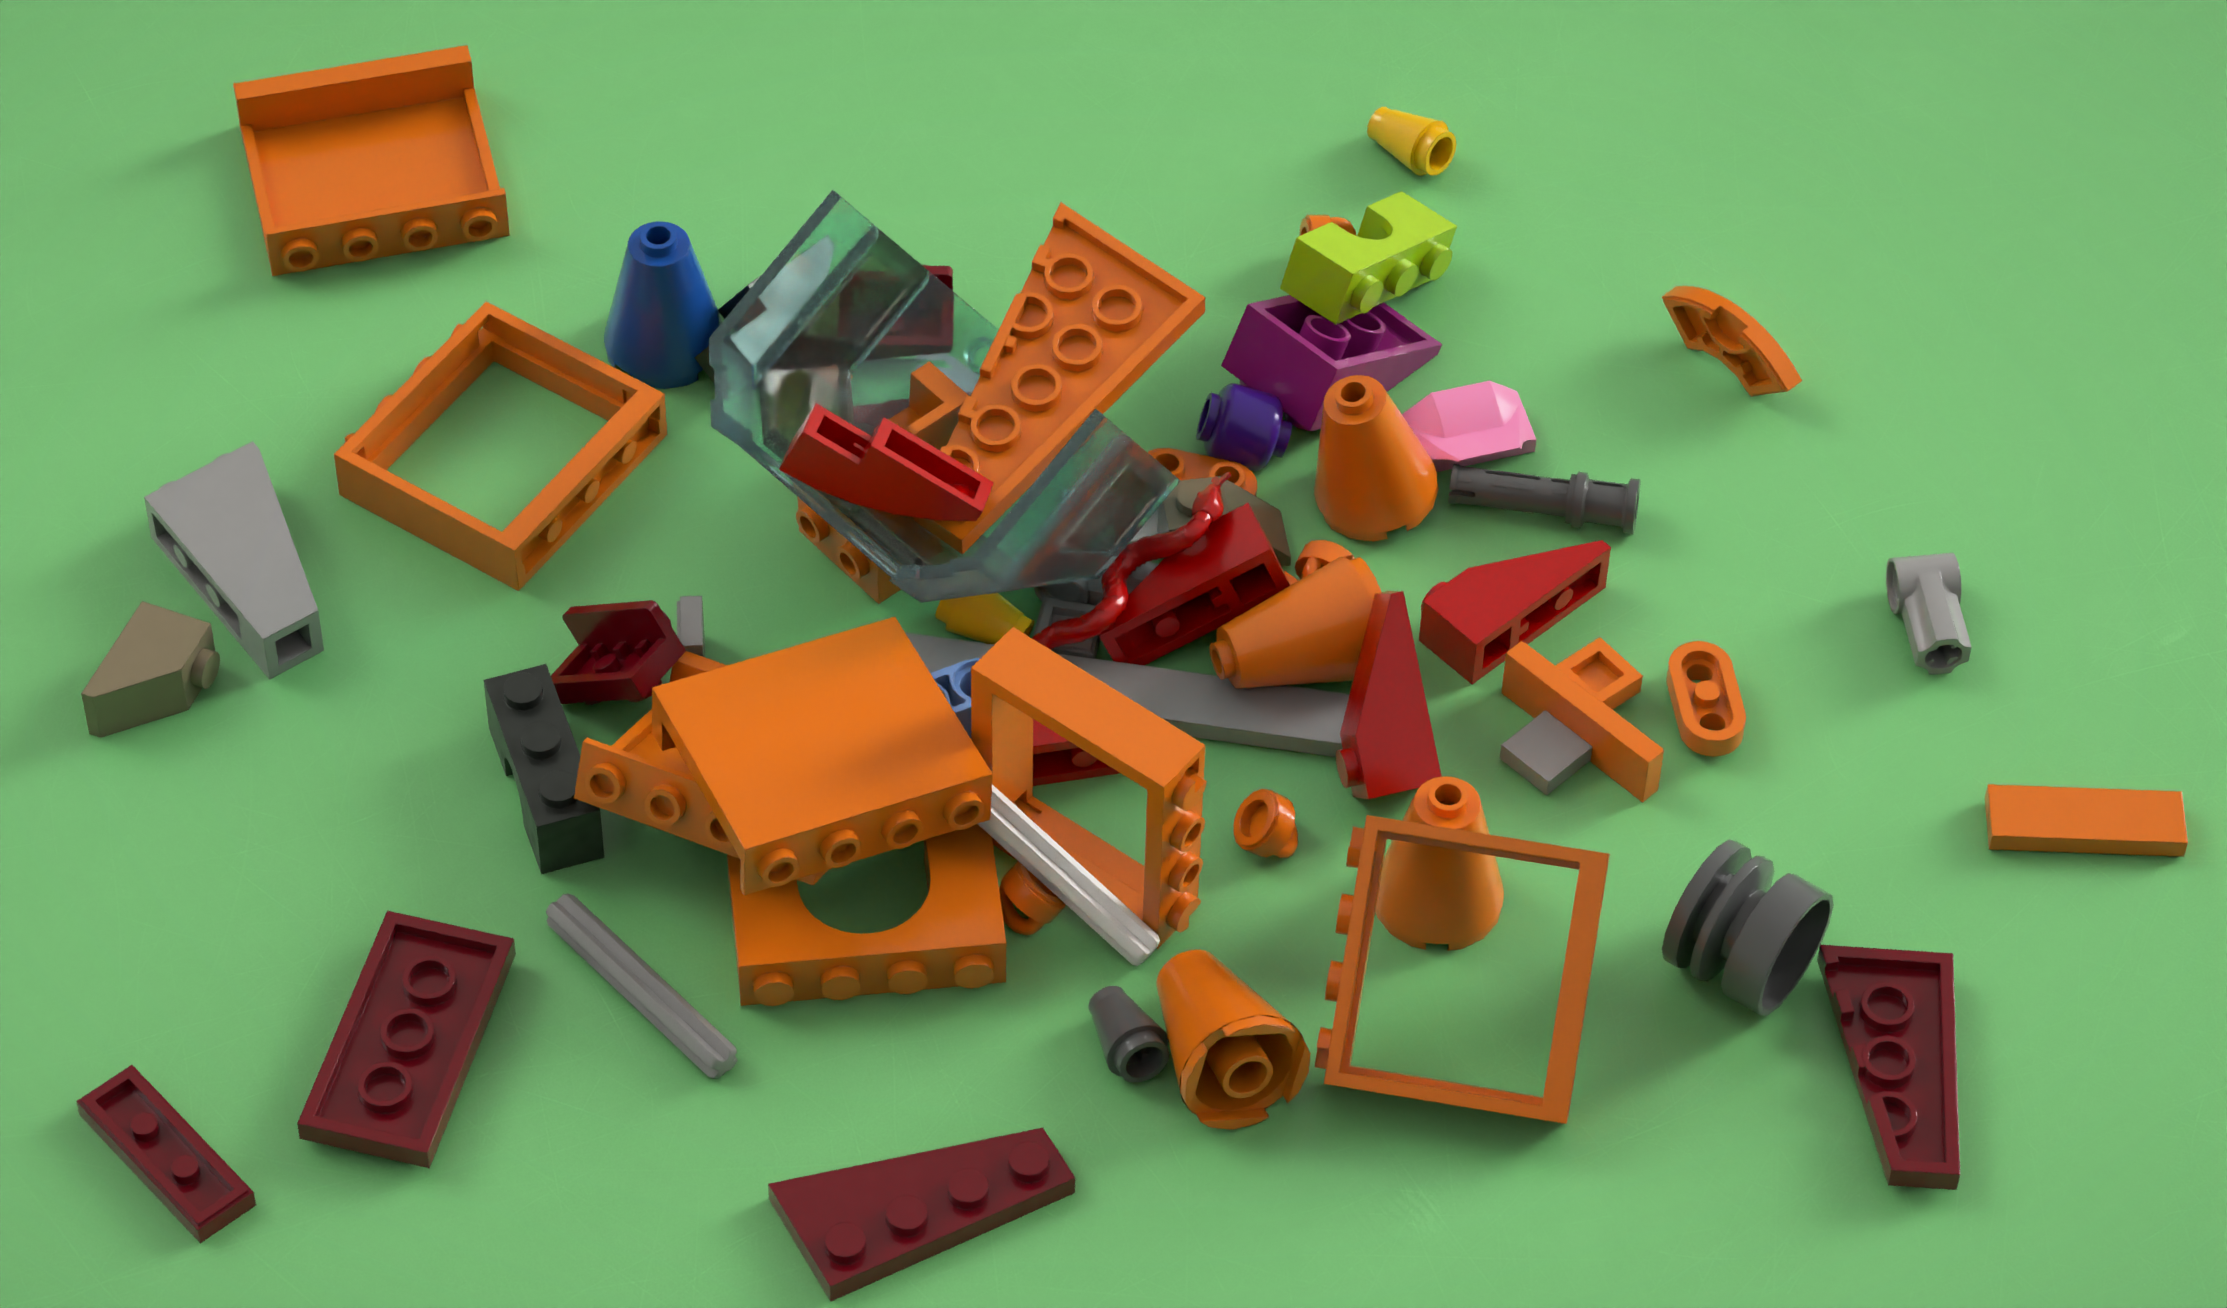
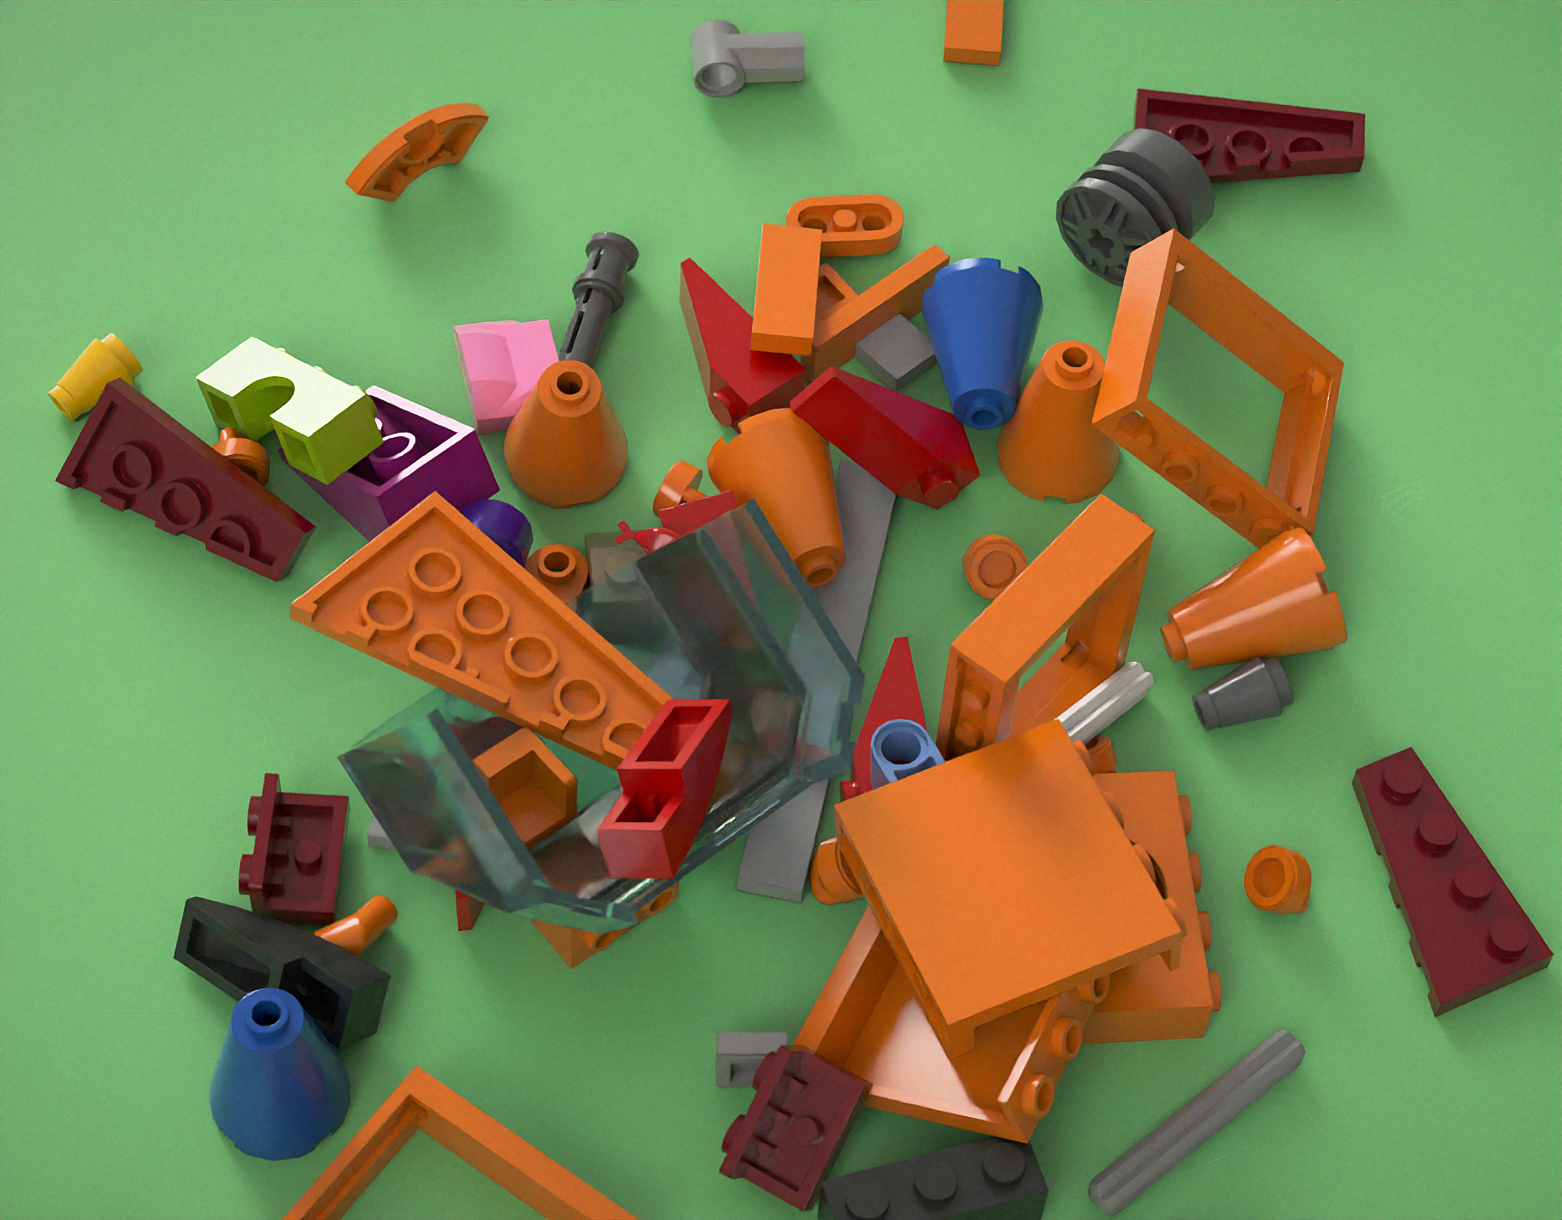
camera: 90 degrees left, 5 degrees up
(904, 1049) = (1278, 880): none -> orange tile
(1295, 187) = (164, 471): none -> dark red wing
(1536, 785) = (982, 336): none -> blue cone
(1578, 624) = (786, 290): none -> orange tile

